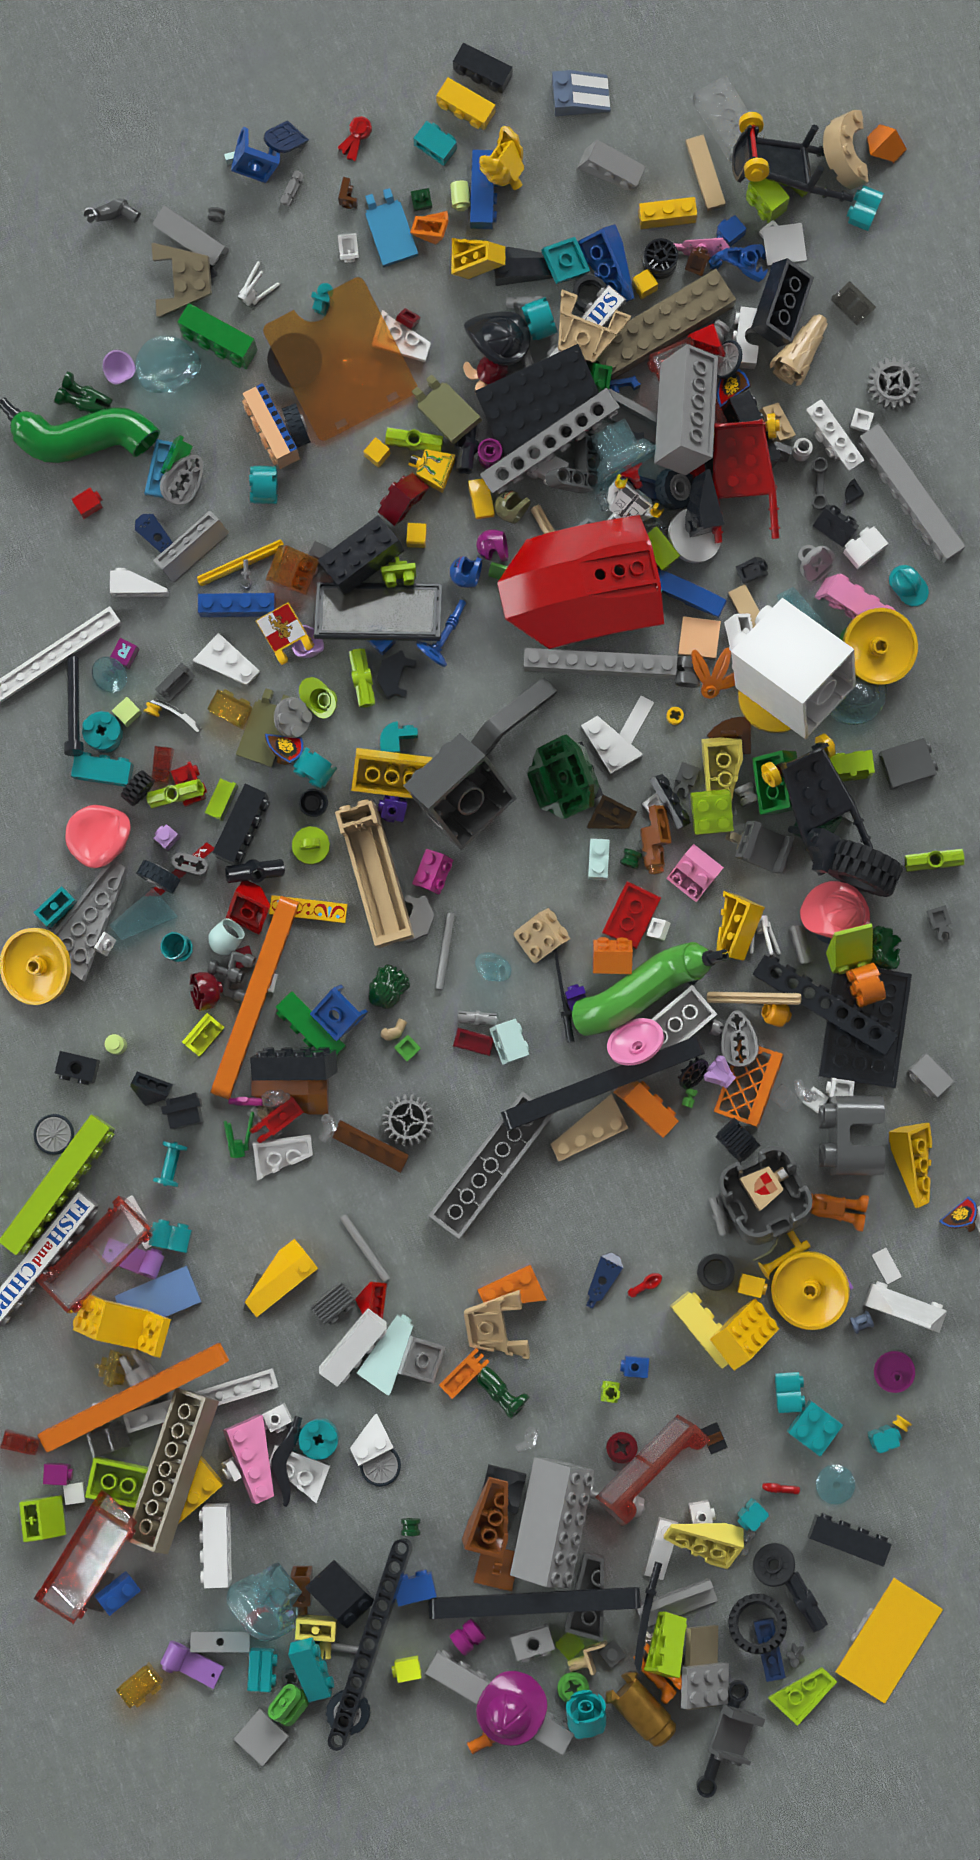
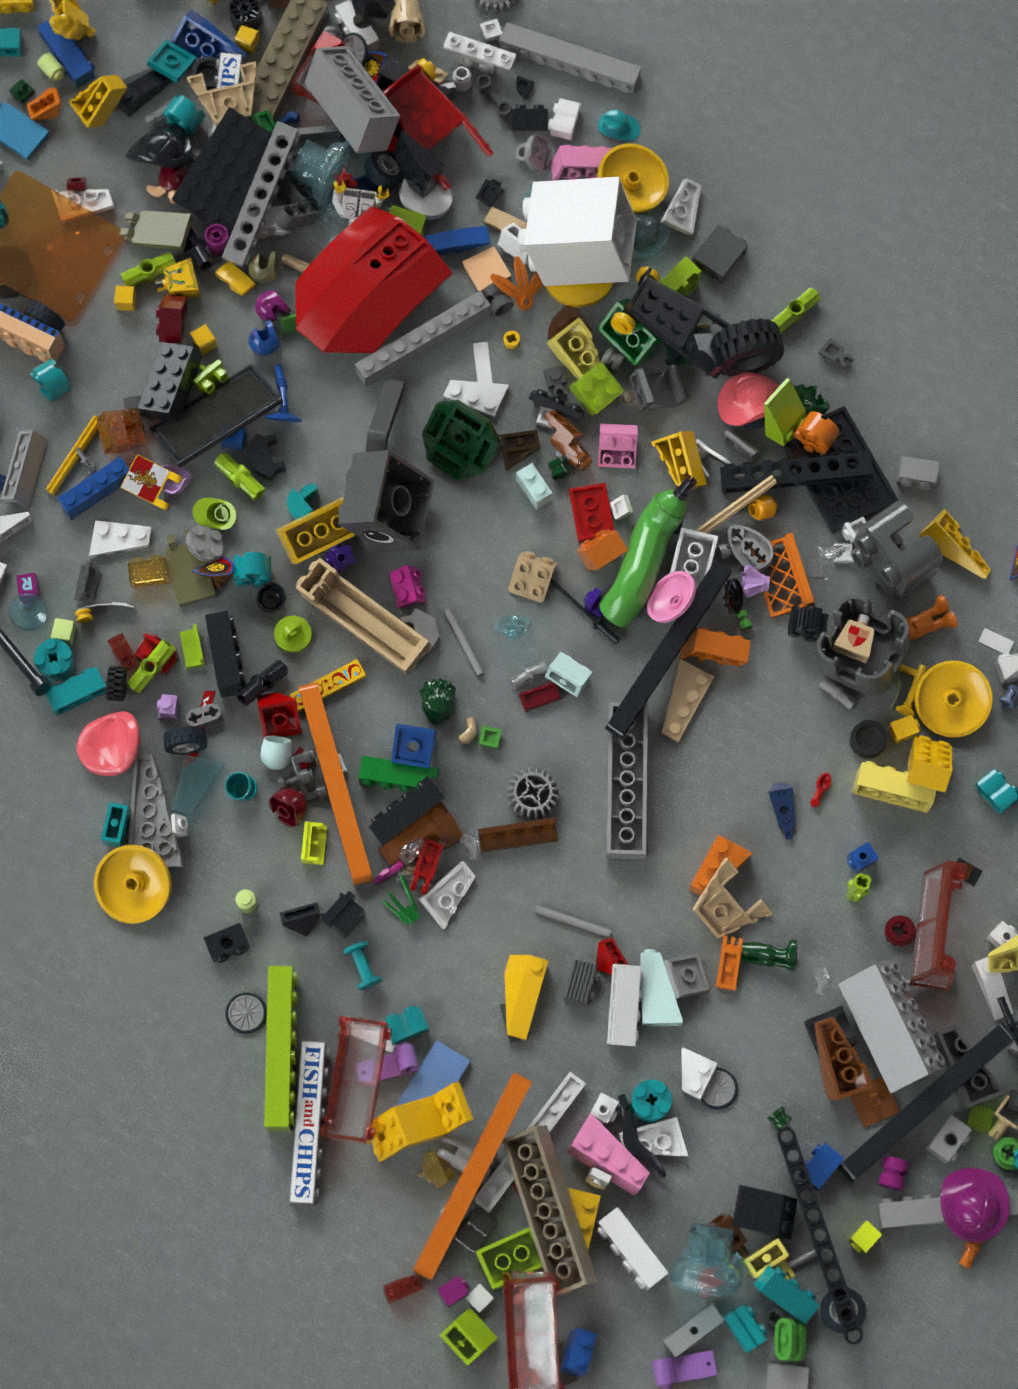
camera: 40 degrees left, 10 degrees down
(906, 701) = (683, 208): none -> white wing

